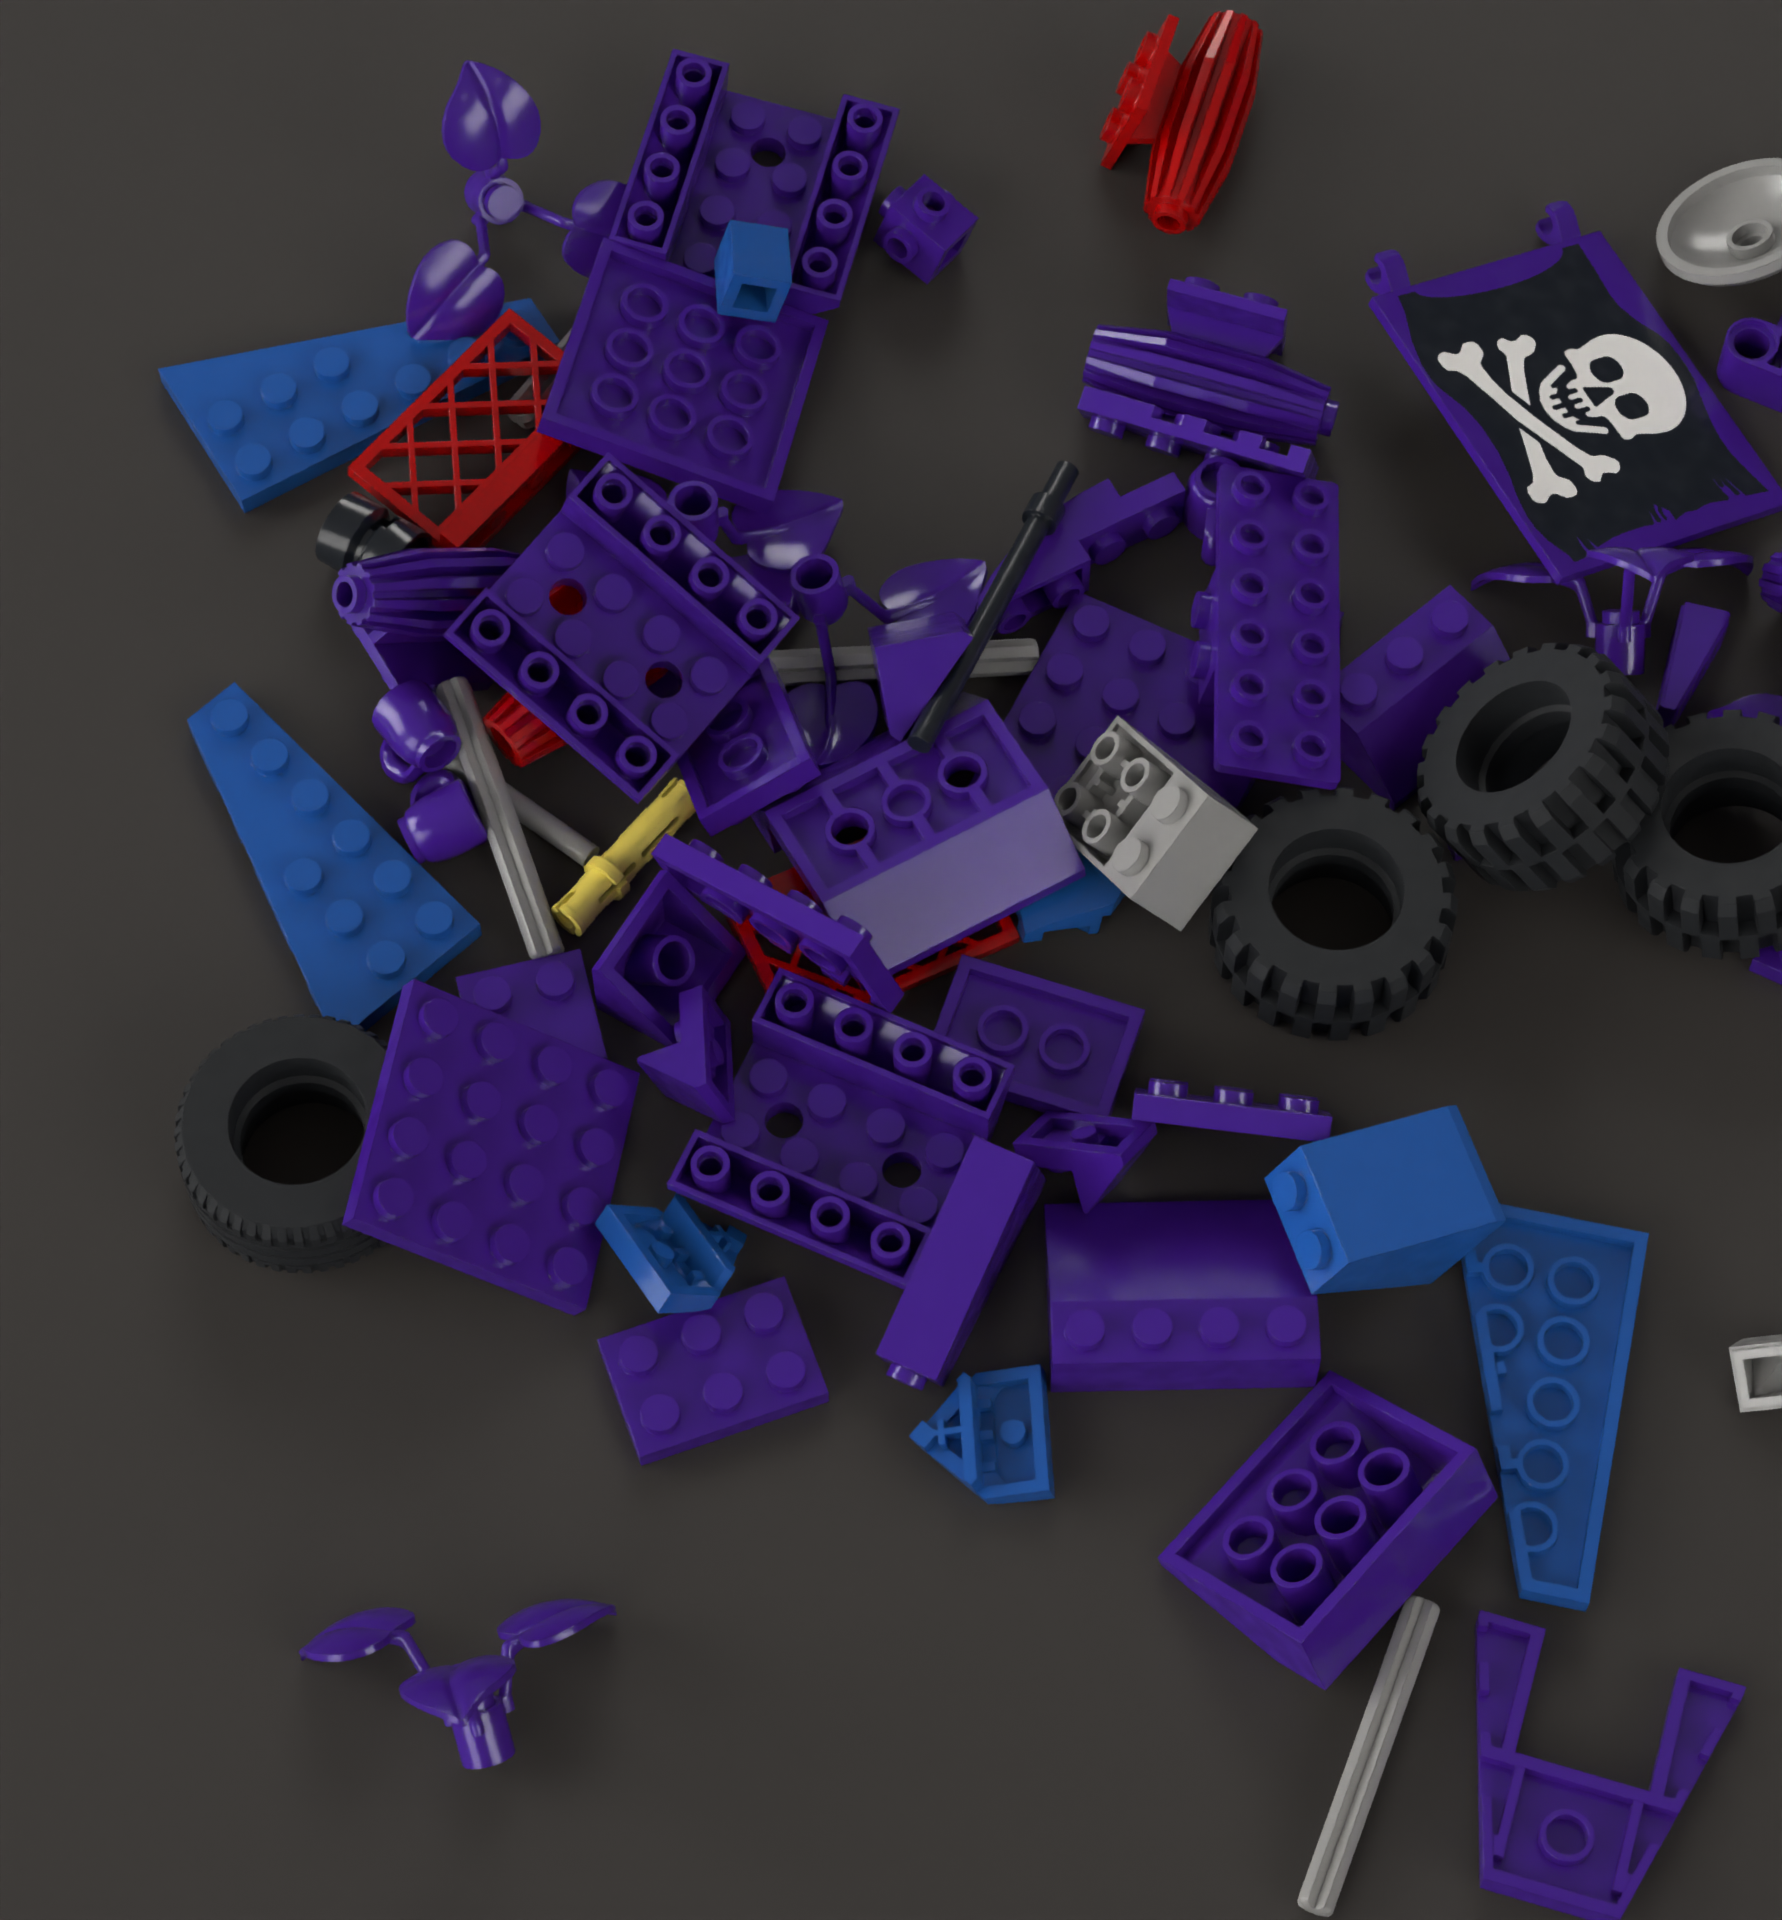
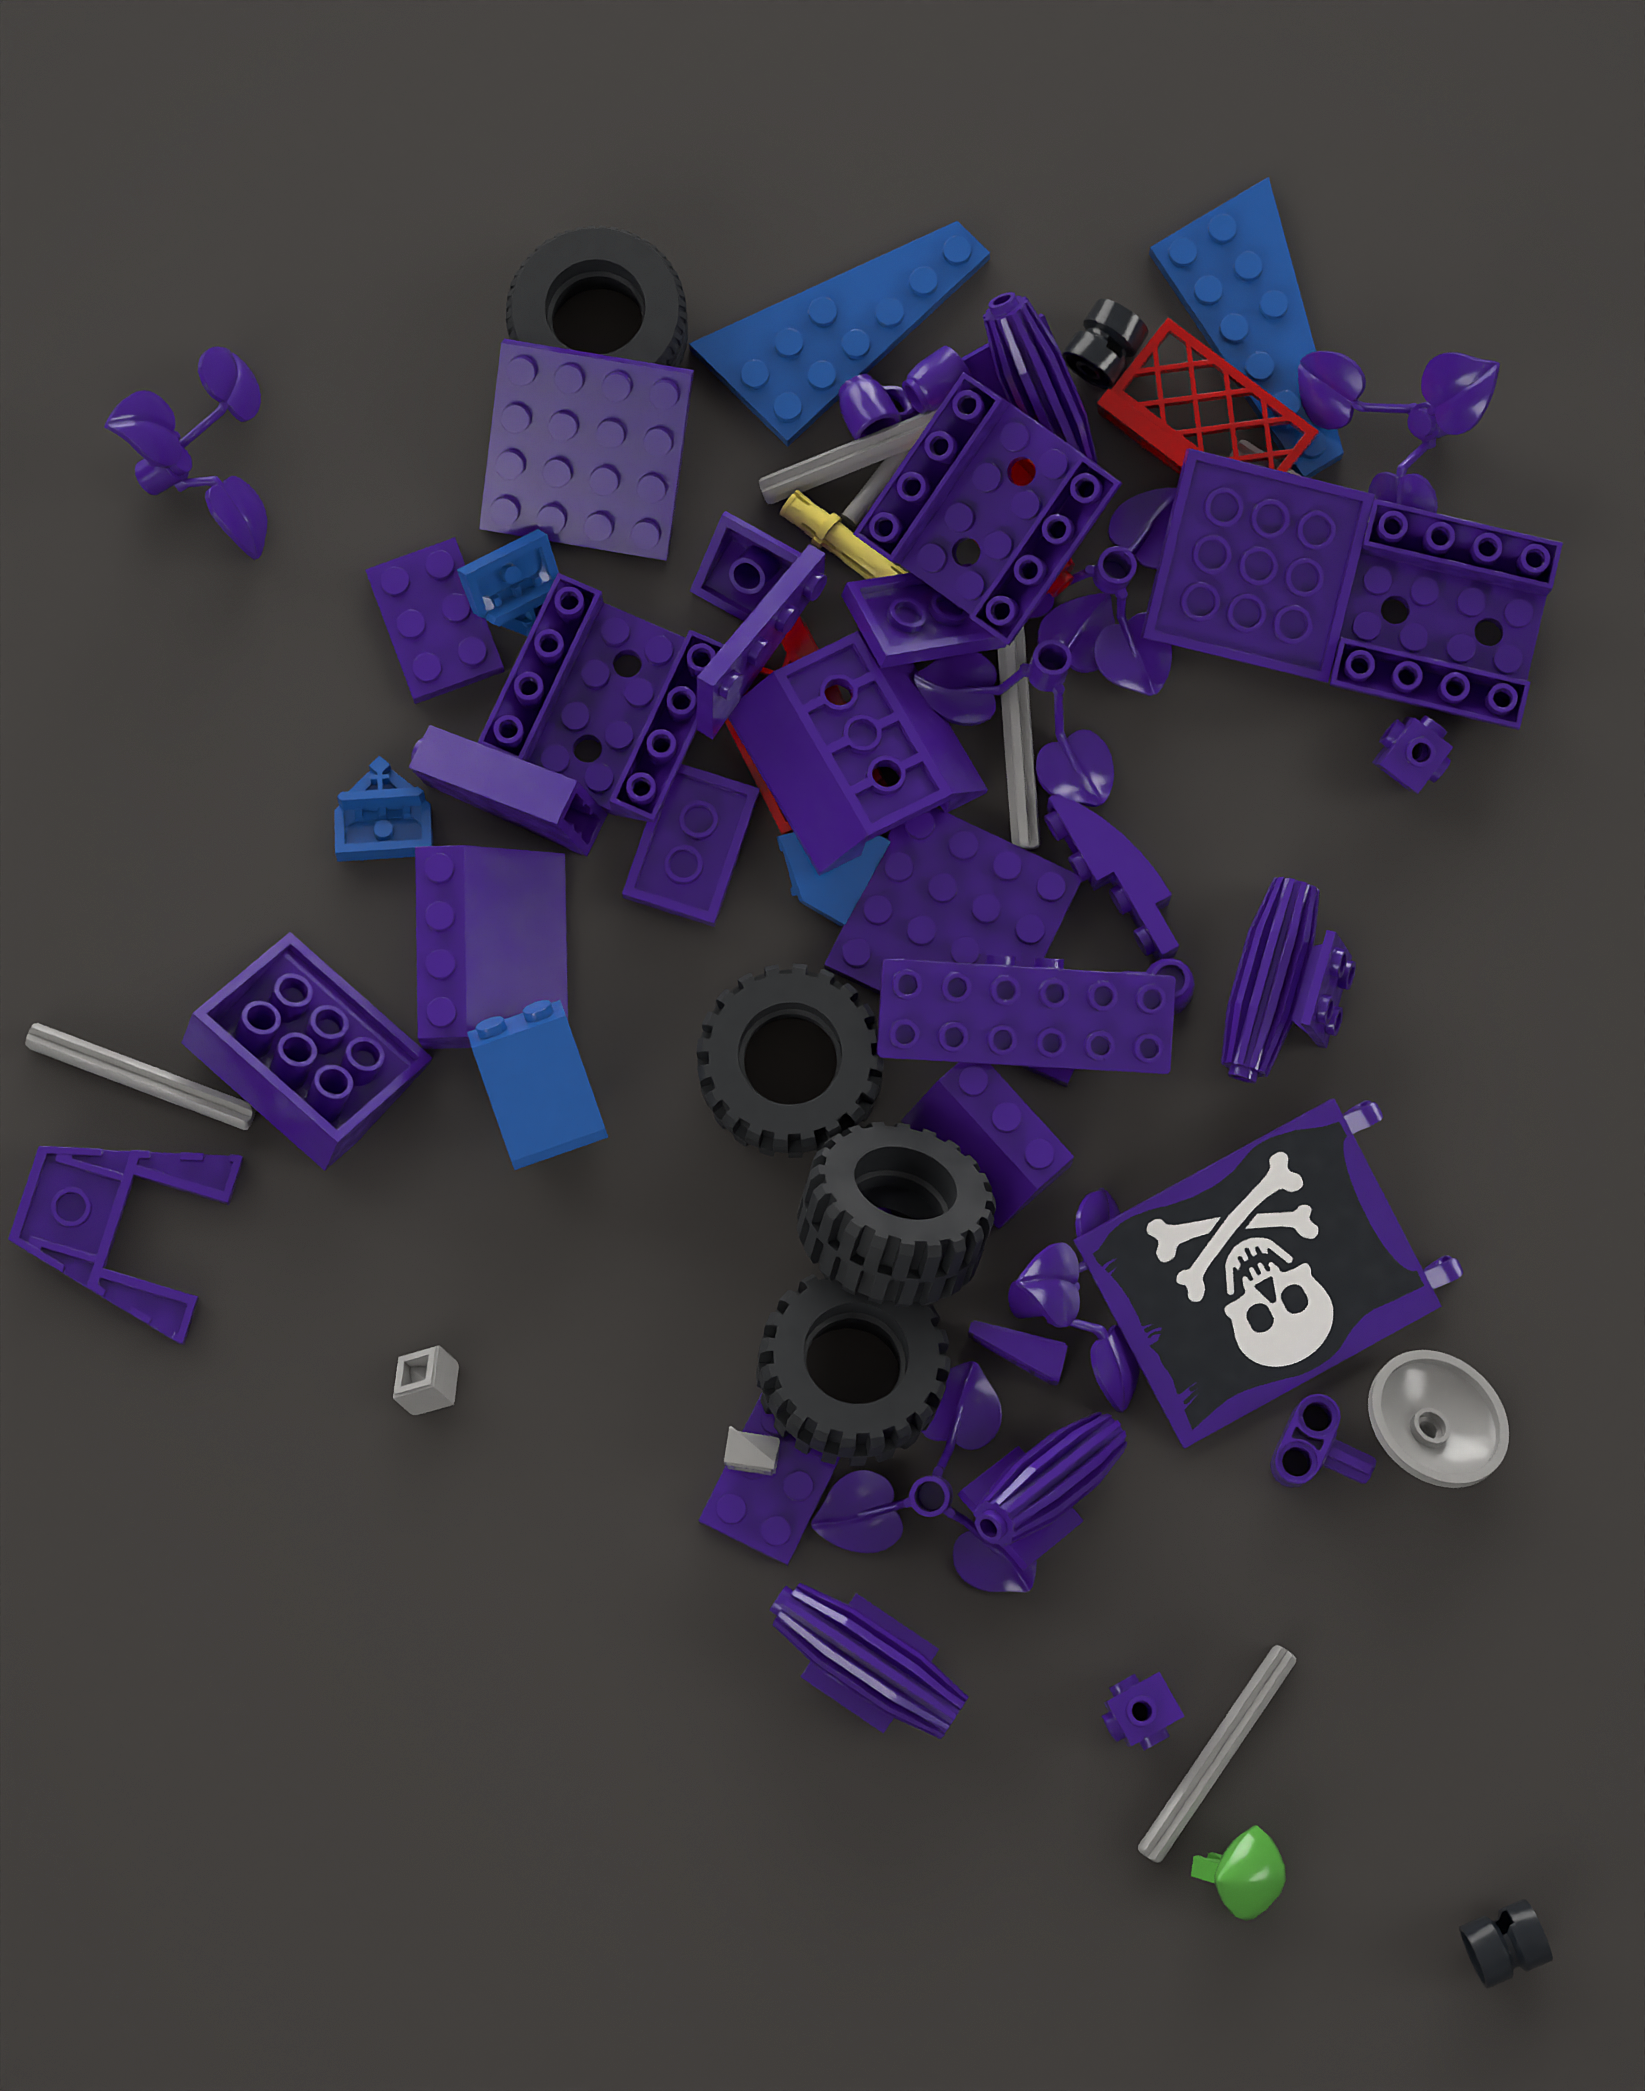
camera: 90 degrees right, 15 degrees up
(543, 995) = (720, 481): dark purple wing -> none
(700, 1064) = (661, 601): dark purple slope -> none
(752, 271) = (1352, 612): blue brick -> none
(913, 662) = (991, 737): dark purple slope -> none
(1040, 520) = (1127, 839): black bar -> none
(1091, 1146) = (596, 873): dark purple slope -> none
(1115, 414) = (1202, 1004): dark purple wing -> none
(1151, 824) = (847, 916): light grey slope -> none
(1187, 113) = (1532, 967): red plate -> none
(1232, 1111) = (618, 980): dark purple plate -> none
(1553, 1352) = (436, 1218): blue wing -> none

